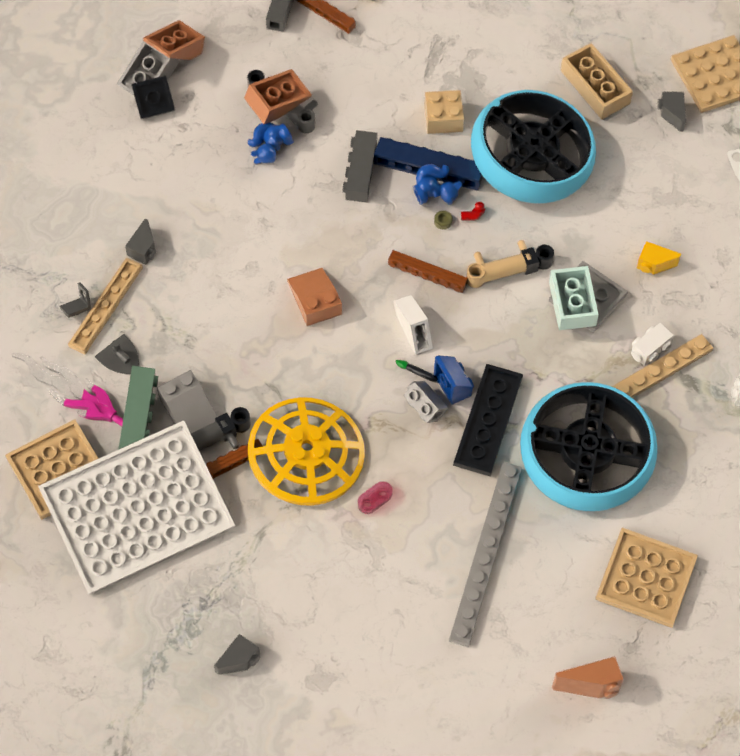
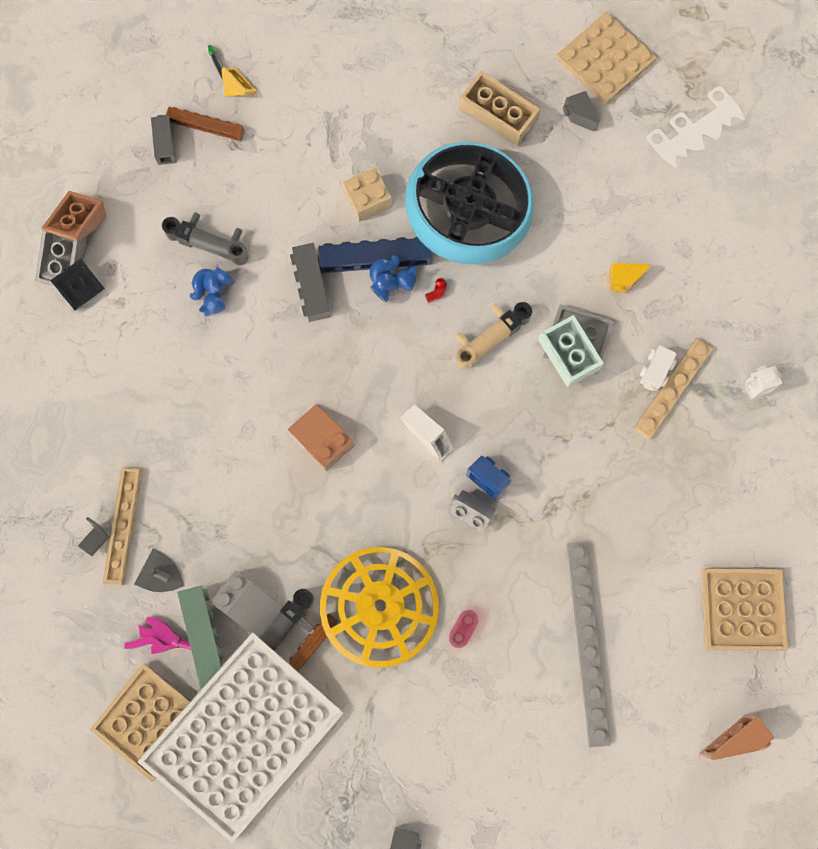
camera: 20 degrees left, 15 degrees up
(141, 245) = (131, 447): dark grey slope -> none
(276, 95) = (200, 240): nougat slope -> none
(416, 370) = (448, 478): black piece -> none
(427, 271) = (418, 370): dark orange piece -> none
(443, 220) = (410, 309): olive tile -> none
(488, 420) = (536, 505): black plate -> none
(597, 397) = (695, 489): black wheel -> none

